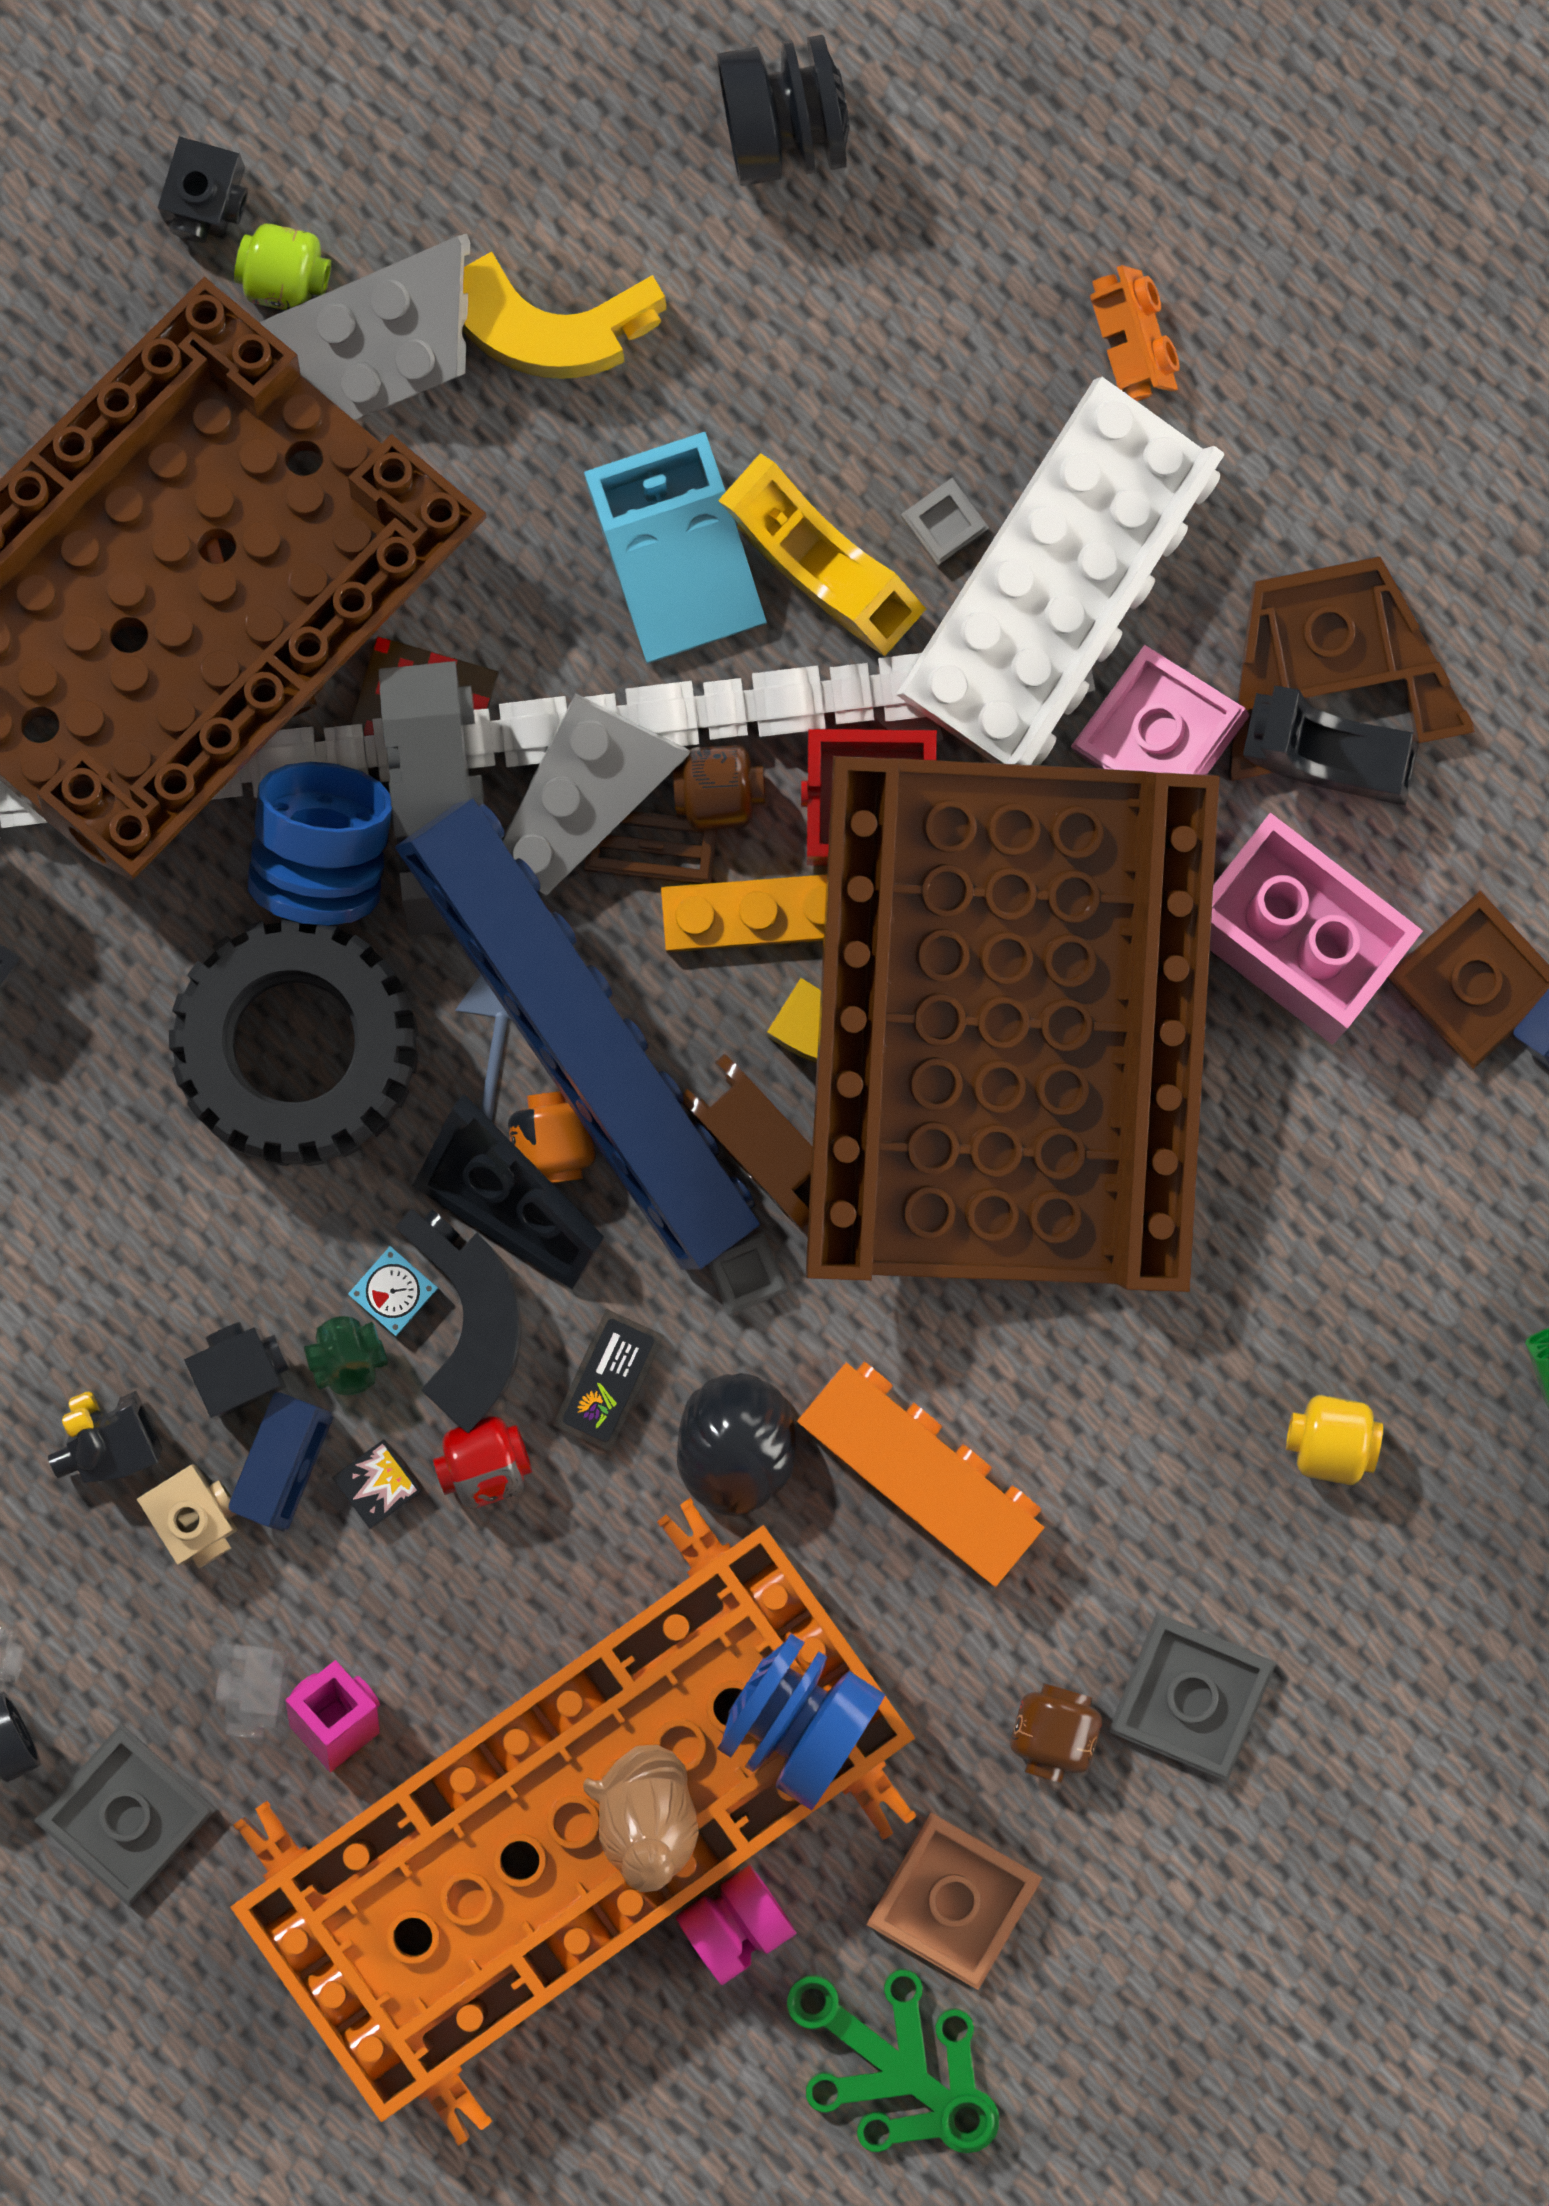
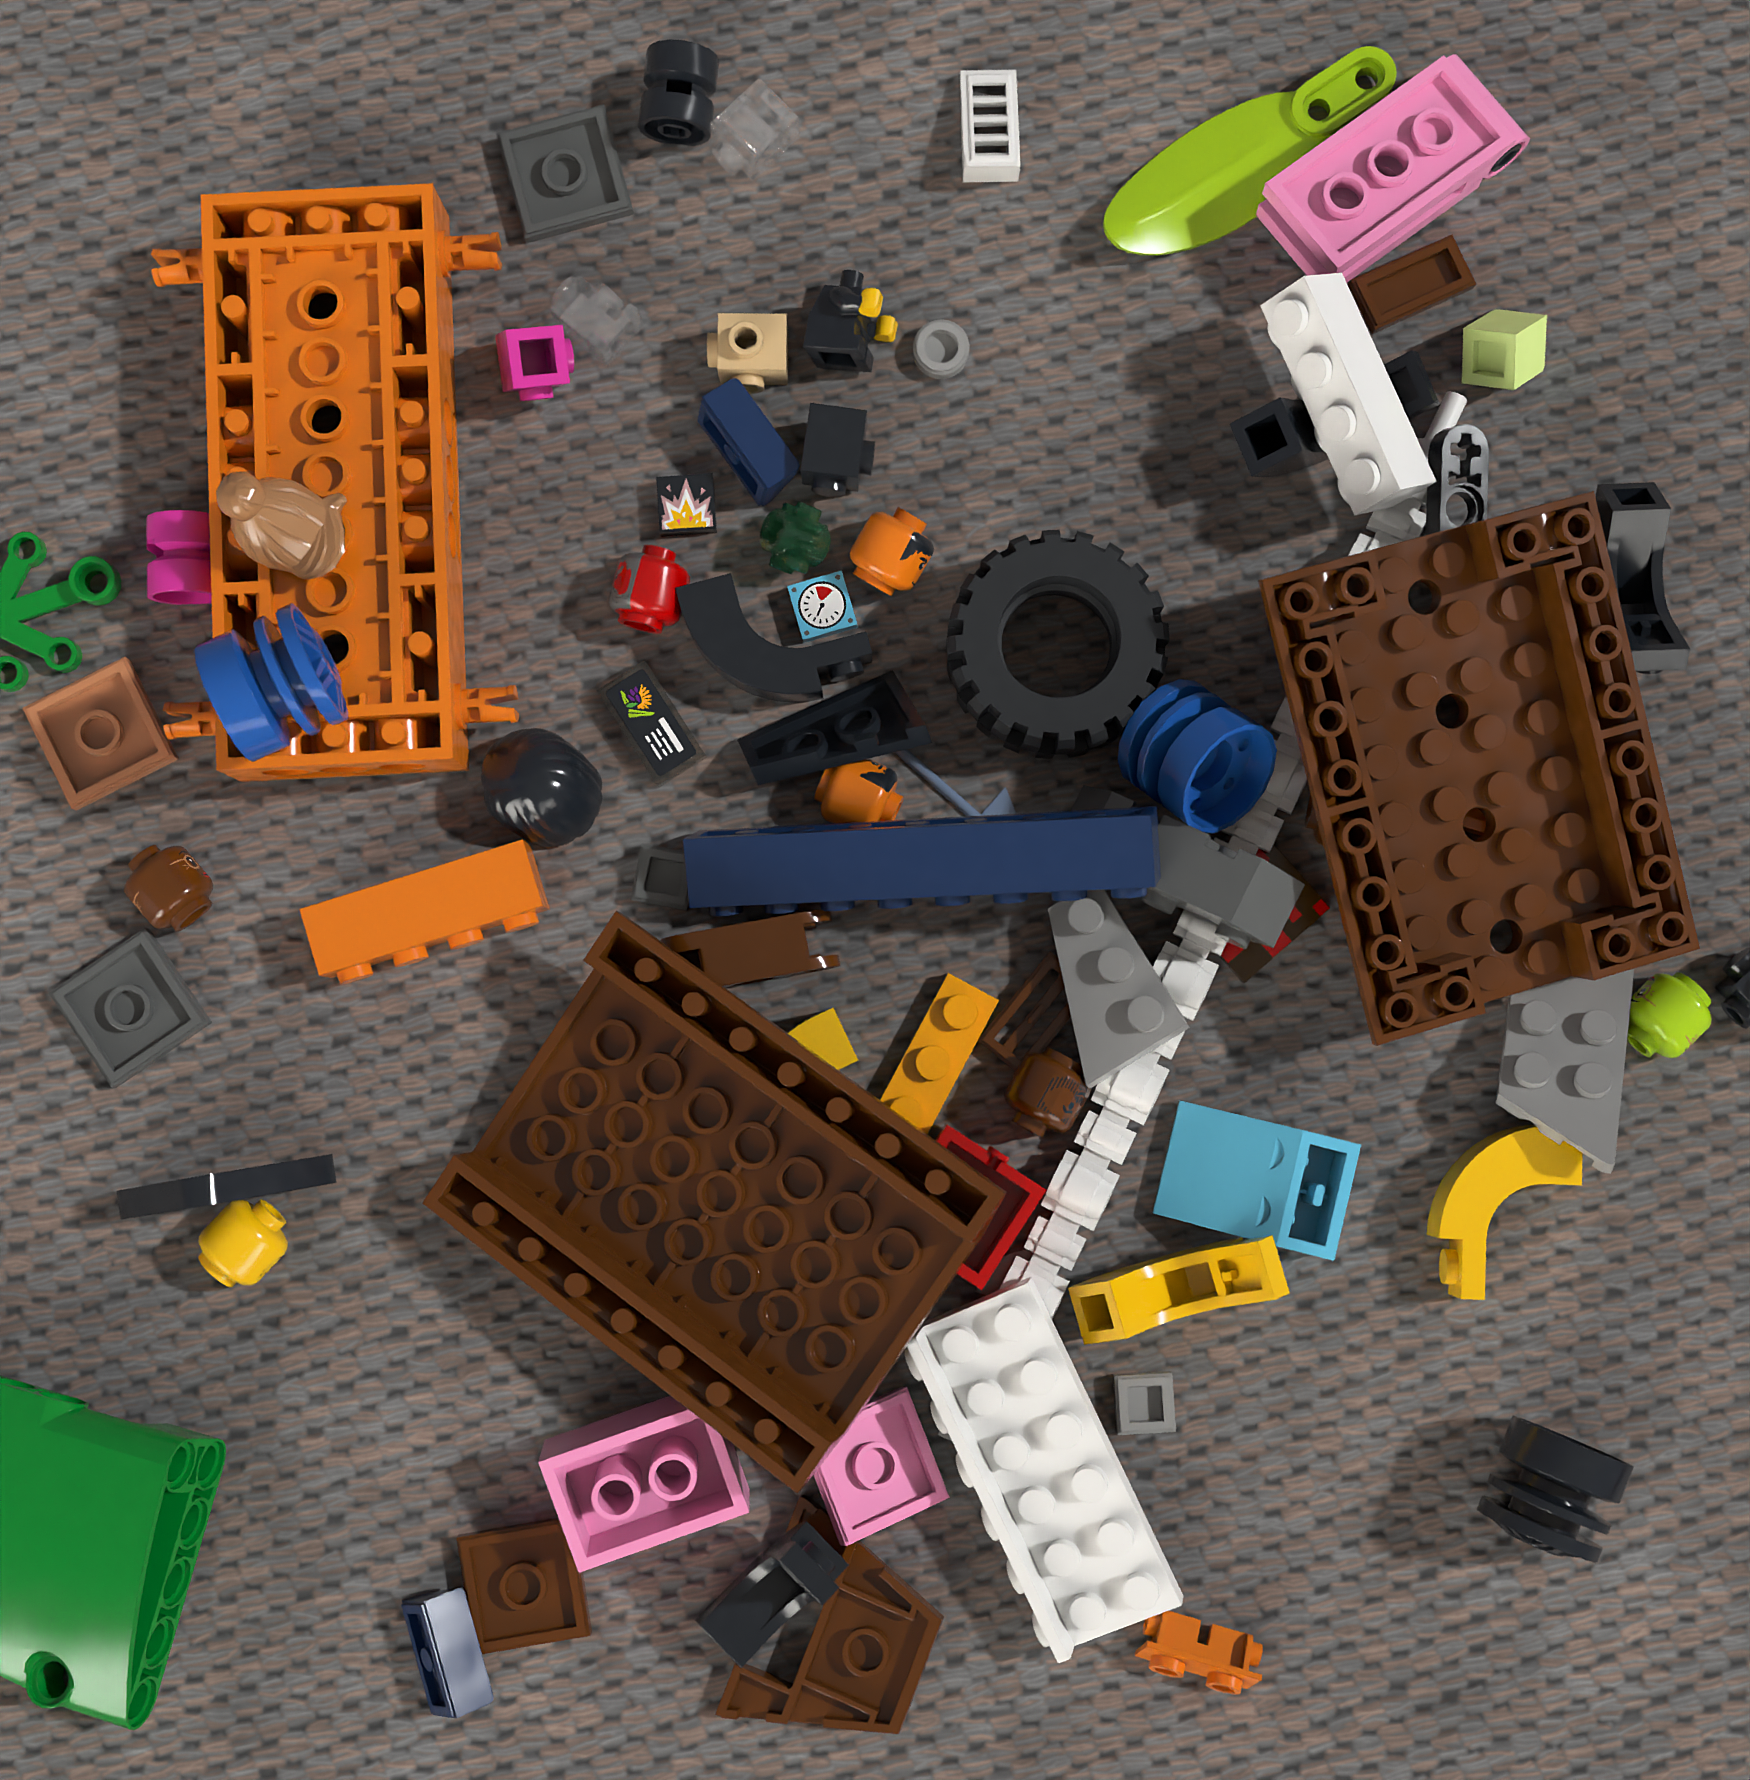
camera: 120 degrees right, 0 degrees up
(70, 1339) = (941, 349): none -> light grey tile
(300, 1257) = (891, 551): none -> orange head
(1299, 1488) = (226, 1186): none -> black beam

